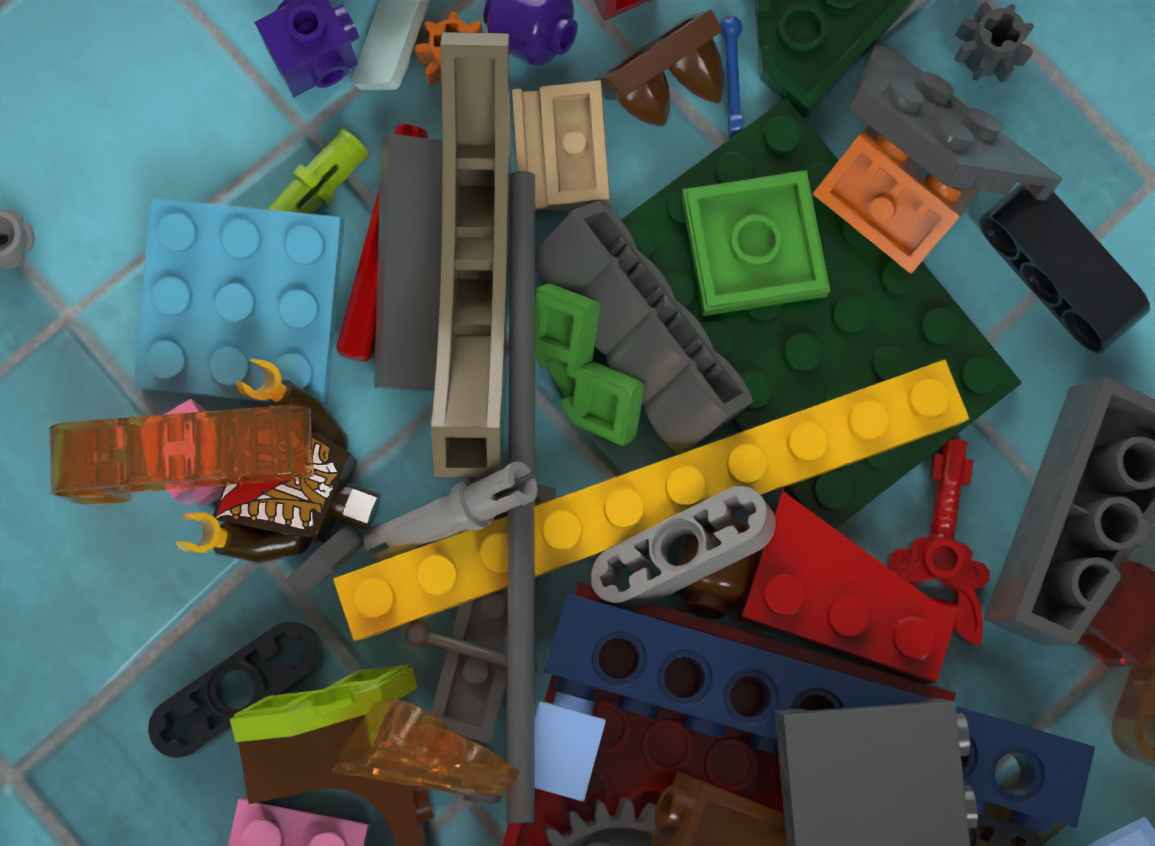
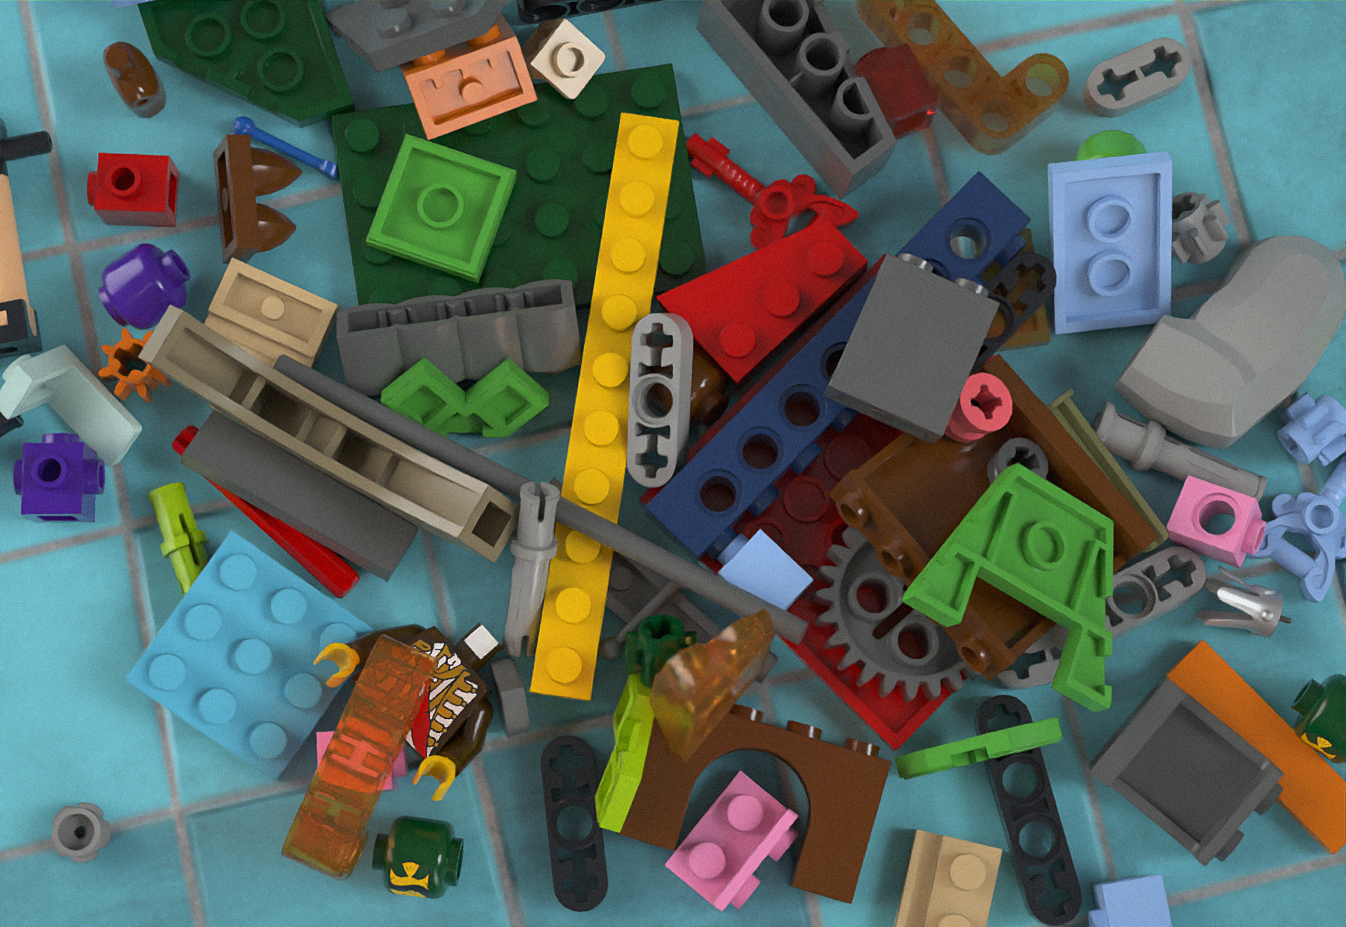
camera: 60 degrees left, 0 degrees up
(125, 559) = (419, 857): none -> dark green head
(437, 682) = (654, 645): none -> dark green gear
(965, 275) = (561, 56): none -> tan bracket

